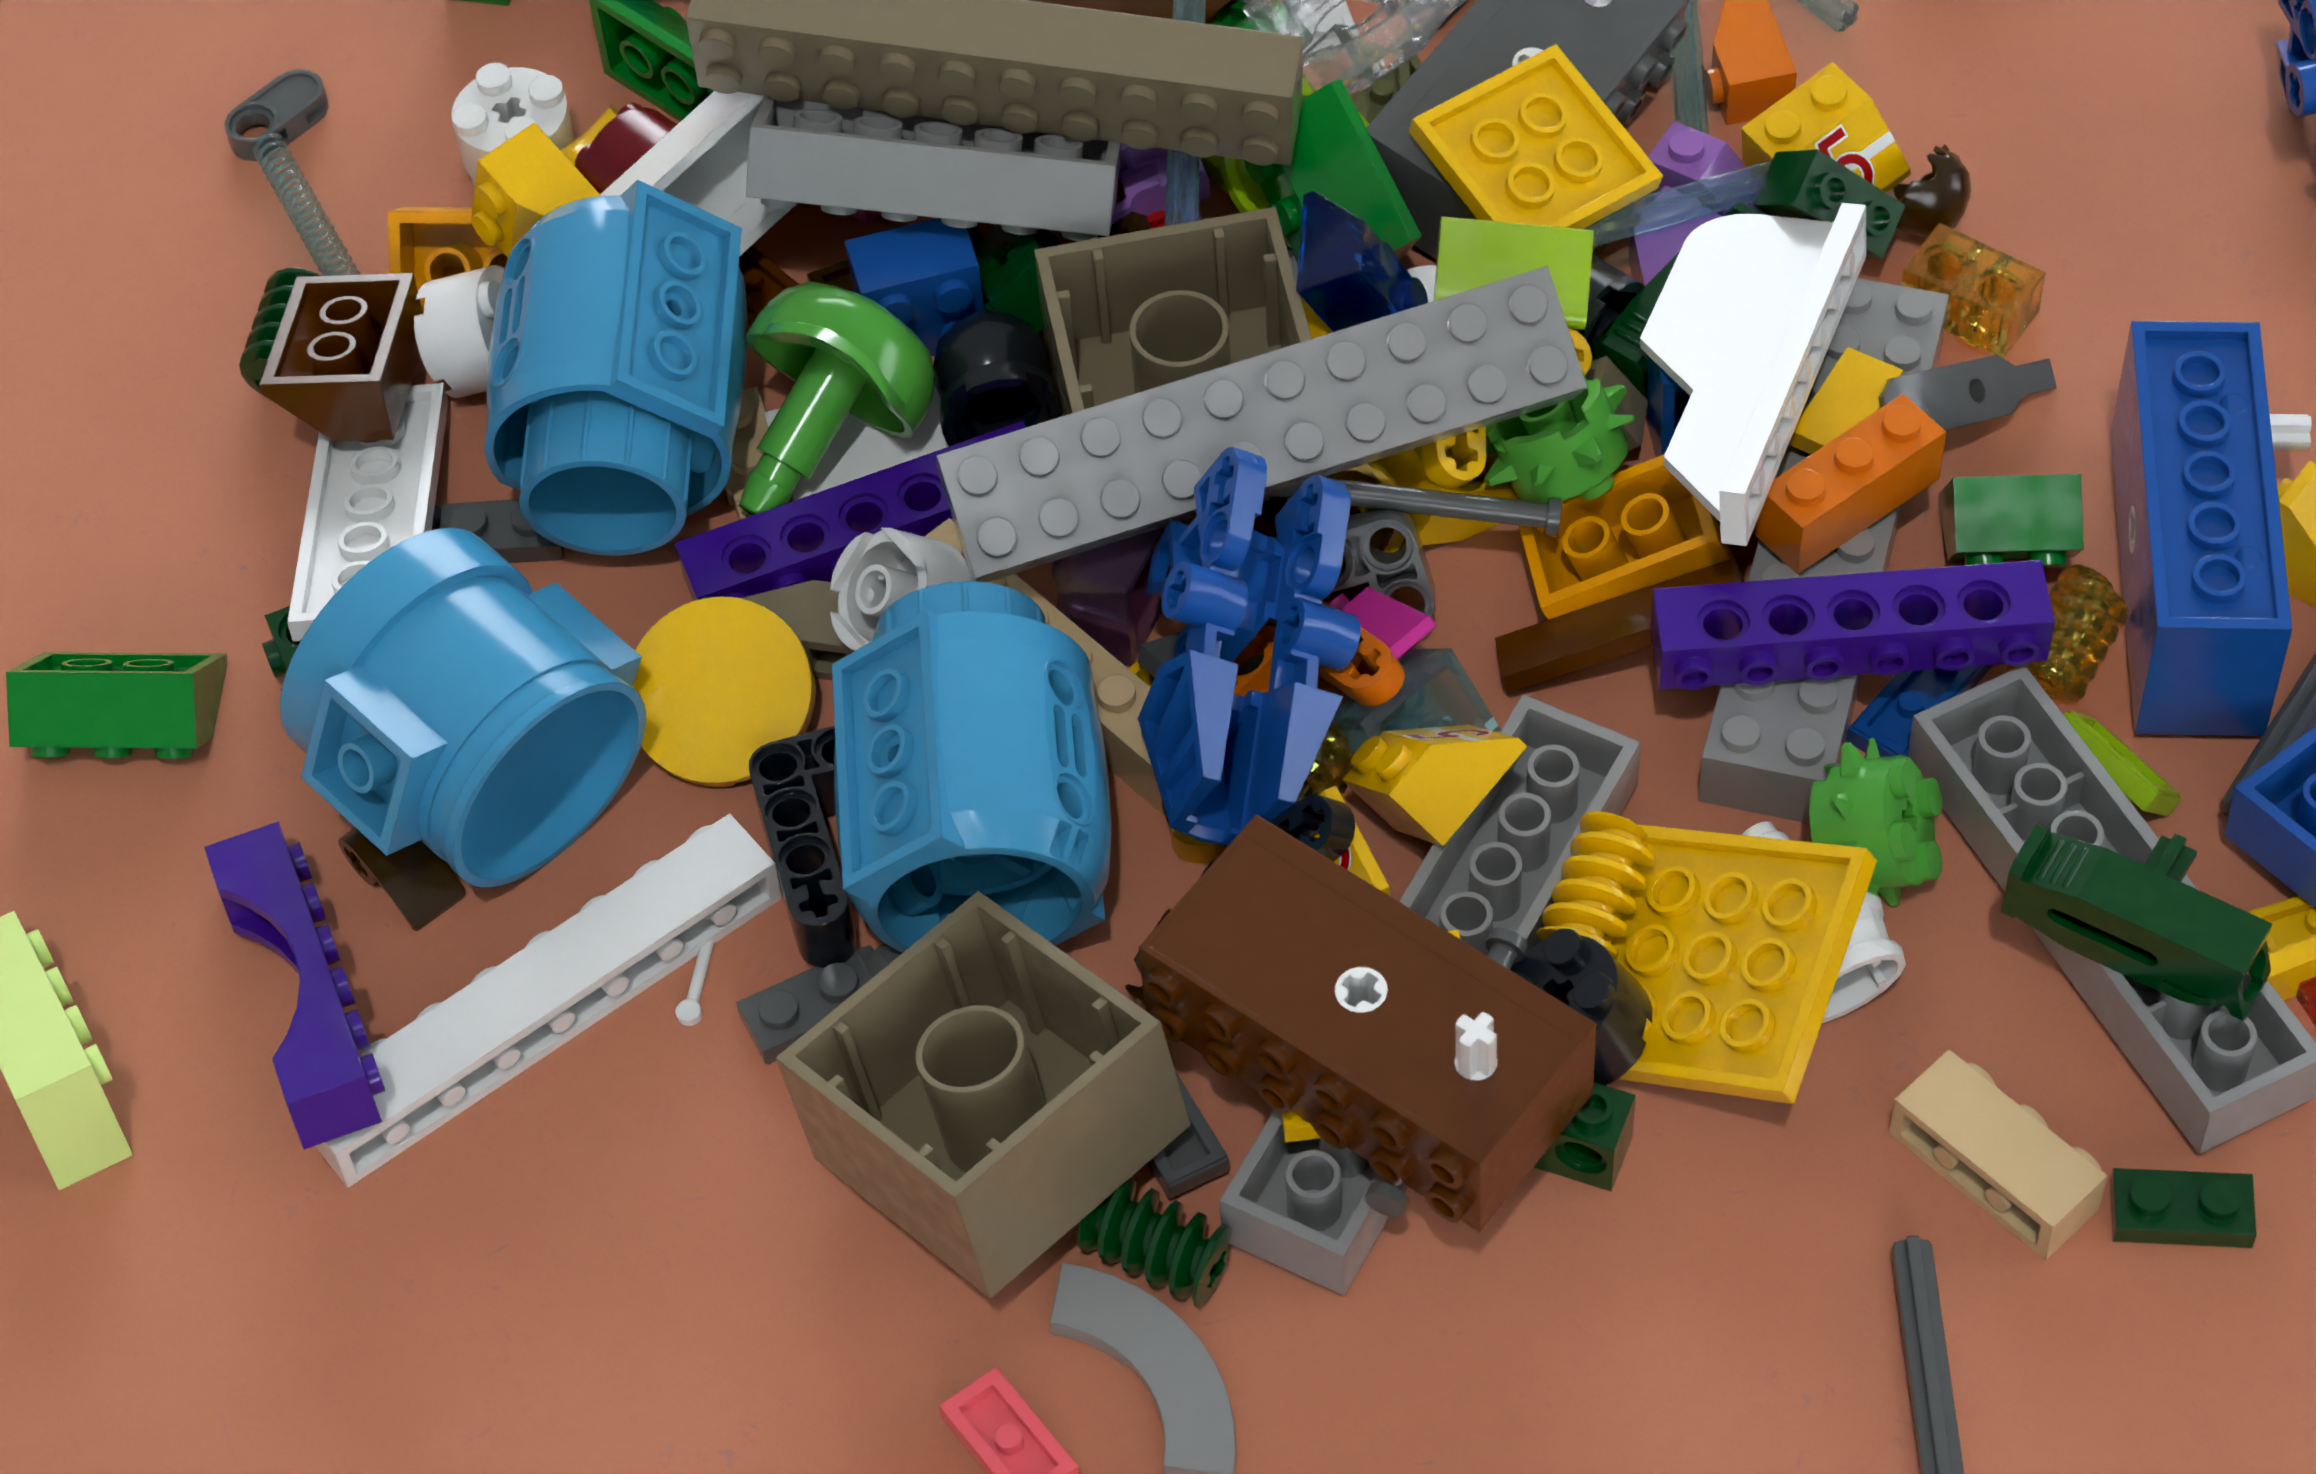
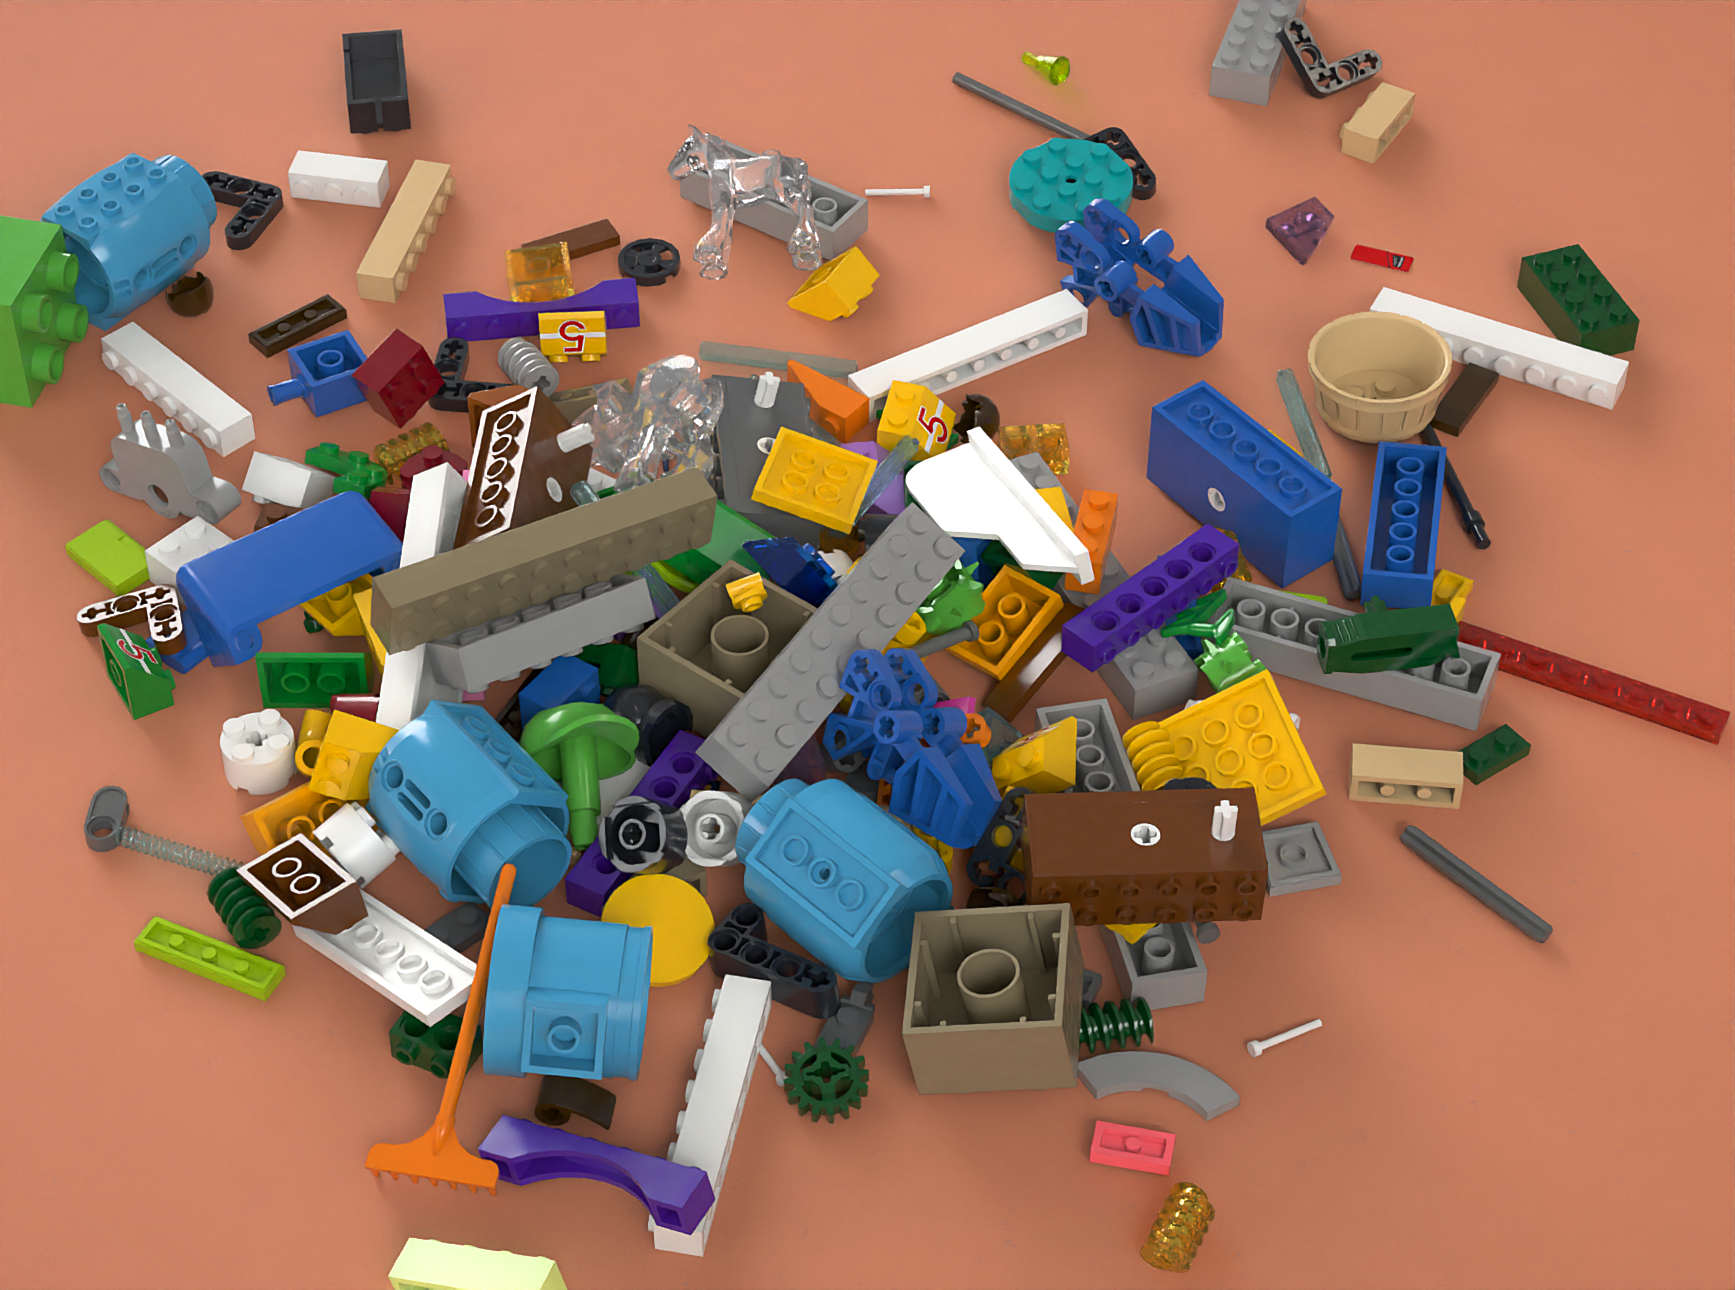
camera: 45 degrees left, 10 degrees down
(114, 702) = (343, 1122): green slope -> none
(162, 818) = (437, 1152): none -> orange piece
(206, 379) = (210, 958): none -> lime tile
(707, 1080) = (808, 1082): none -> dark green gear
(780, 546) = (644, 836): none -> black brick
(1245, 270) = (747, 593): none -> yellow plate
(1340, 1419) = (1255, 1048): none -> white piece
(1488, 251) = (852, 531): lime piece -> none
(1701, 1170) = (1299, 859): none -> light grey tile
(1815, 186) = (939, 435): dark green brick -> none
(1897, 697) = (1193, 619): none -> green piece
(1971, 389) = (1084, 478): dark grey piece -> none
(2013, 518) = (1155, 527): green slope -> none
(2049, 84) = (977, 349): none -> white brick

